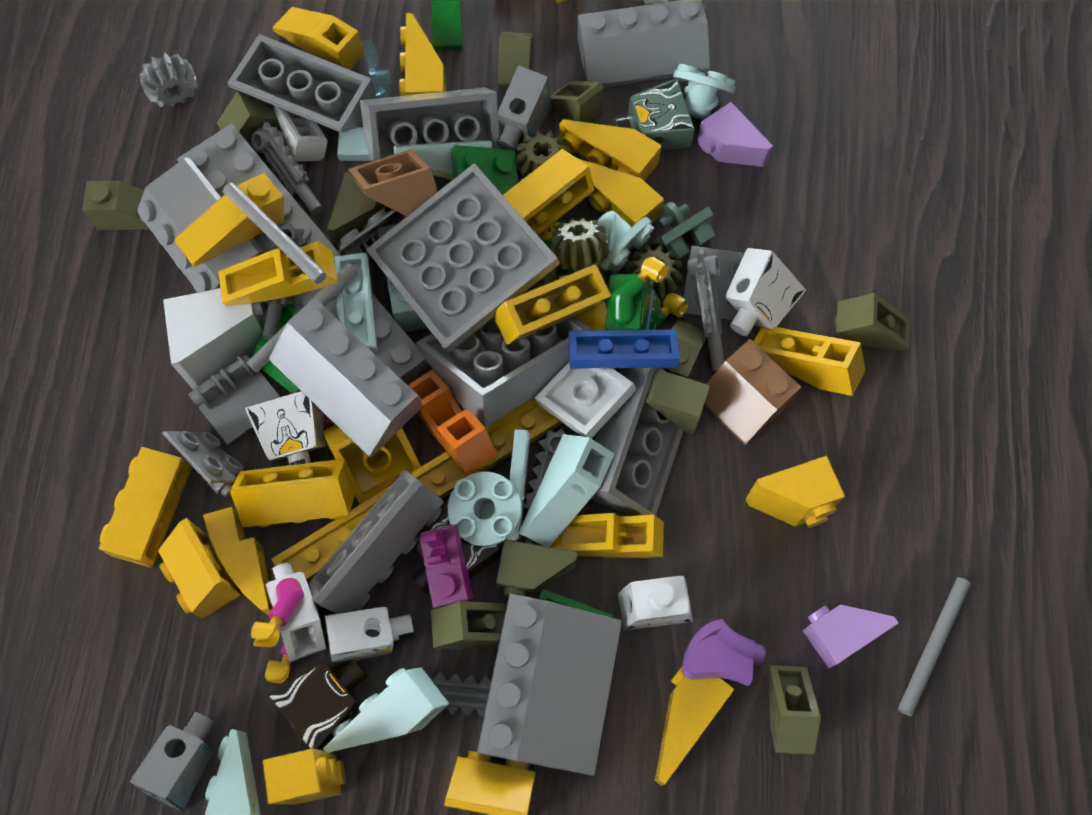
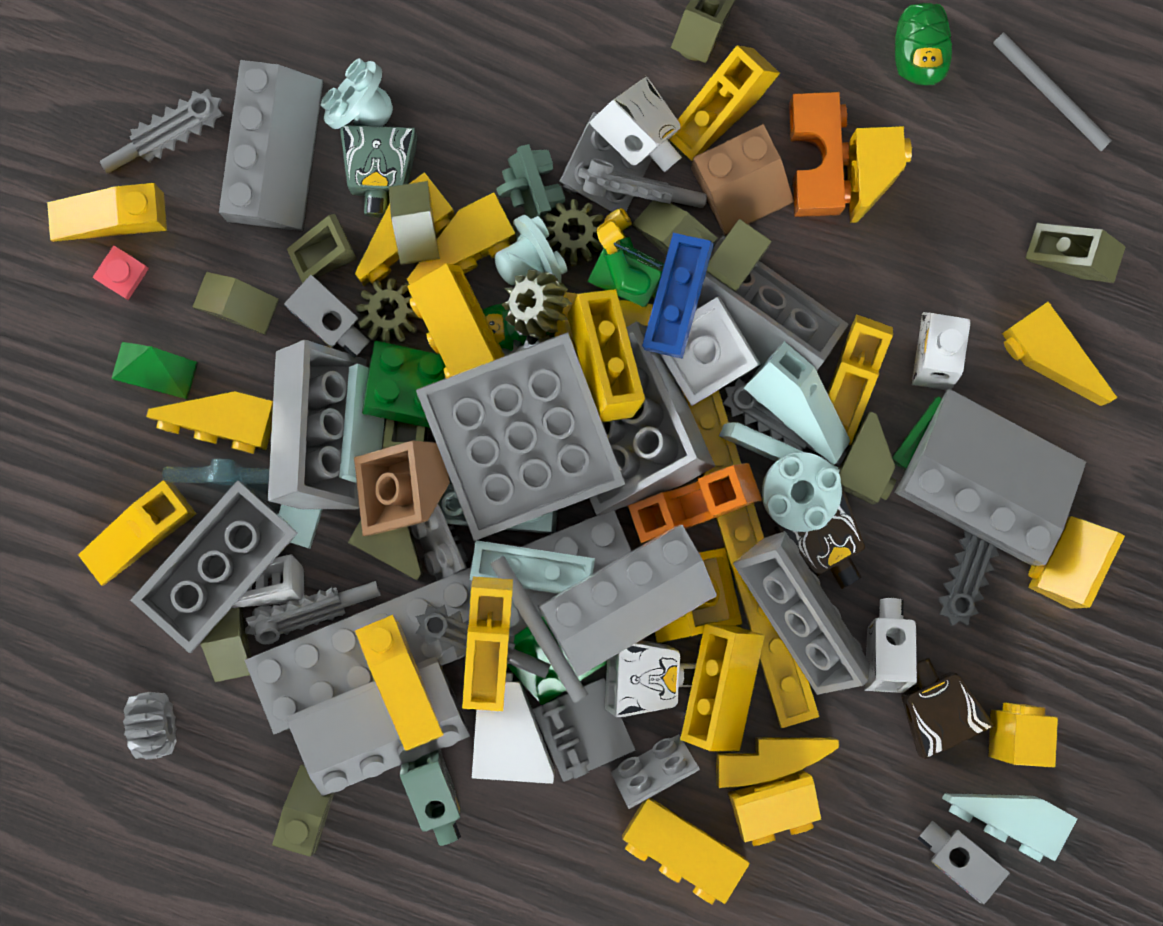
camera: 75 degrees left, 15 degrees up
(147, 286) = (429, 781): none -> sand green torso
(285, 243) = (447, 633): light grey bar -> none
(293, 617) = (856, 713): torso -> none
(399, 710) = (983, 638): light aqua slope -> none
(445, 566) = (850, 548): magenta plate -> none
(467, 624) = (907, 541): olive slope -> none
(616, 143) = (413, 222): none -> olive slope
(722, 653) = (1009, 302): medium lavender arm -> none
(733, 138) = (430, 87): lavender slope -> none
(821, 435) = (819, 120): none -> orange arch
(844, 631) = (1019, 174): lavender slope -> none
(930, 515) = (923, 44): none -> green piece

